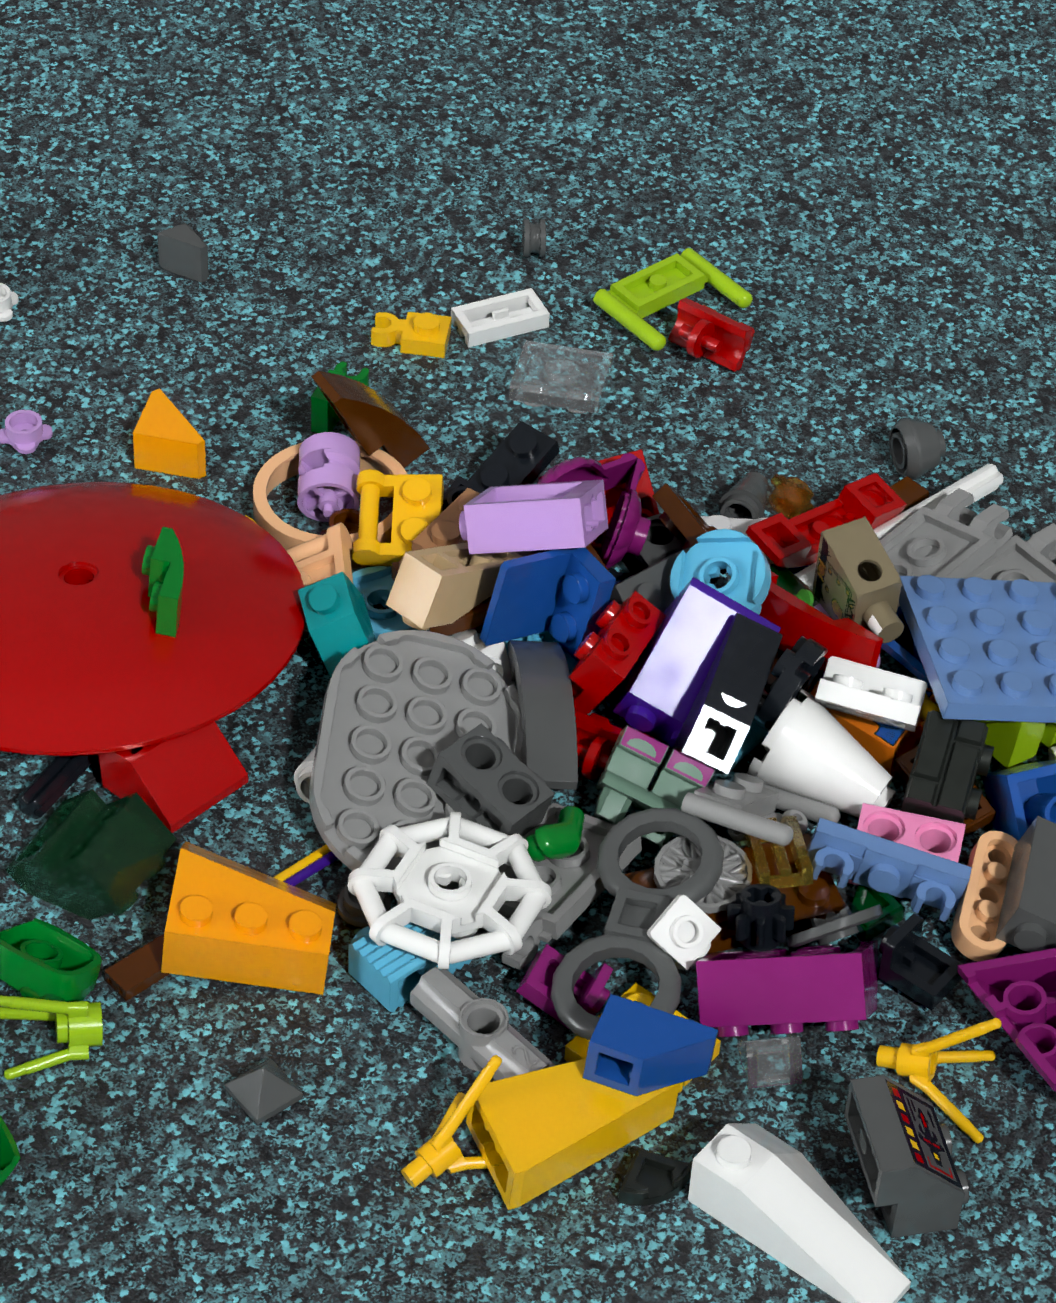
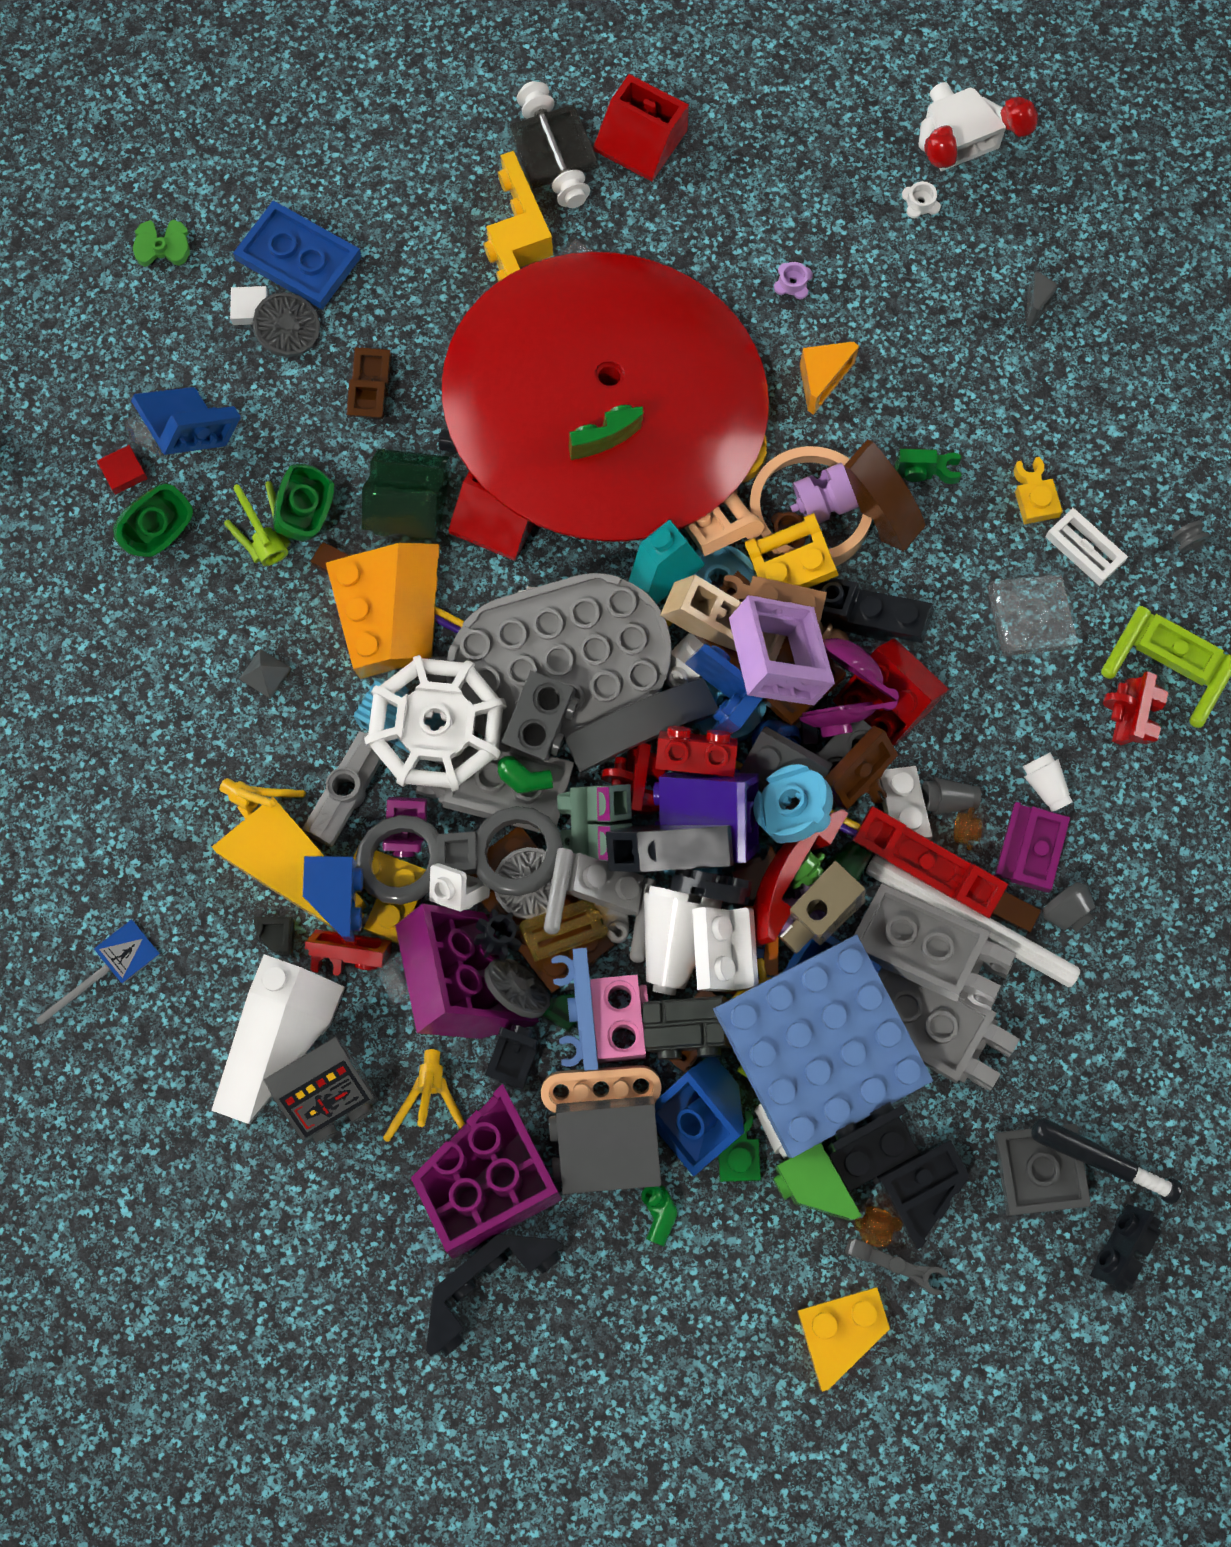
camera: 75 degrees right, 30 degrees up
(705, 1101) = (364, 952): none -> red plate
(762, 422) = (1048, 781): none -> white cone
(831, 455) = (1032, 847): none -> magenta plate

